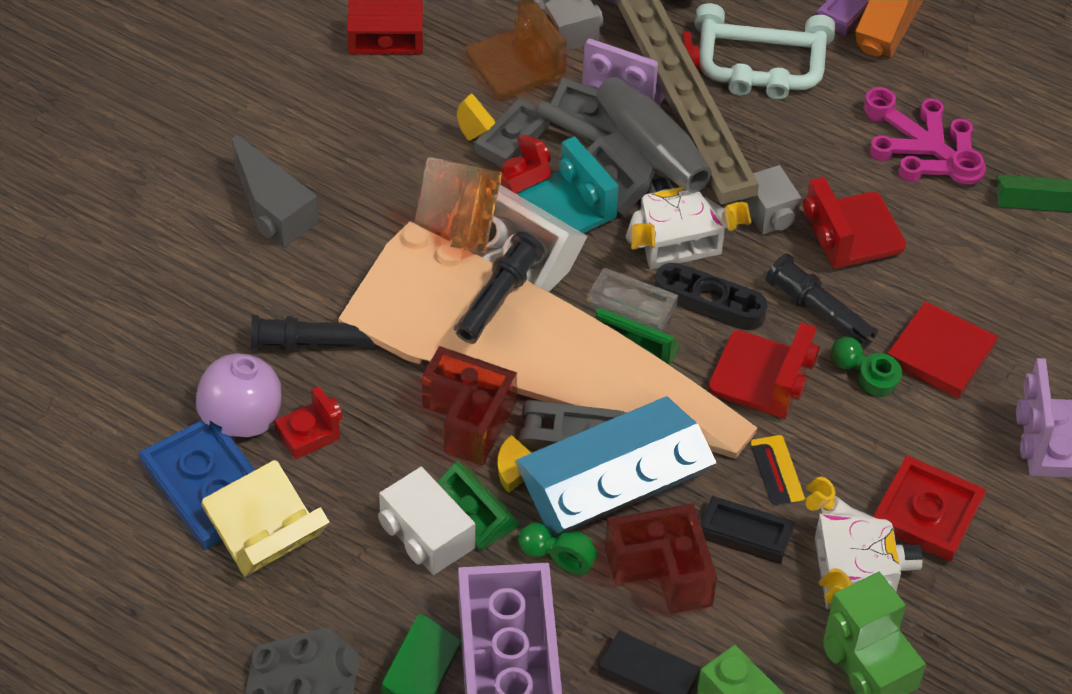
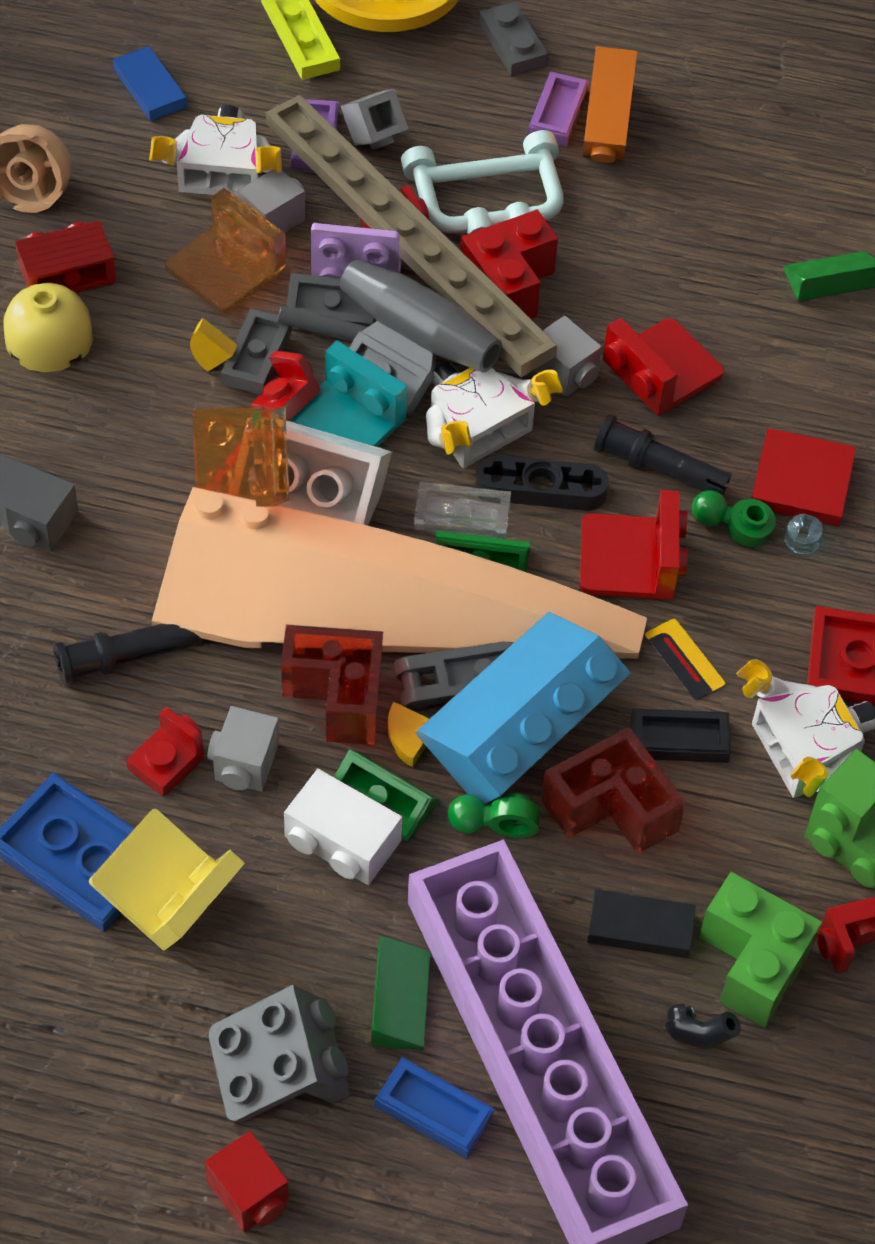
camera: 20 degrees left, 5 degrees up
(239, 395) = (77, 742): lavender cylinder -> none
(350, 74) = (47, 327): none -> light yellow cylinder
(372, 438) = (244, 749): none -> light grey brick
(508, 273) = (330, 521): black pin -> none
(757, 110) = (515, 256): none -> red brick
(930, 400) = (800, 544): none -> clear light blue hinge
(961, 165) = (745, 262): dark pink plant -> none

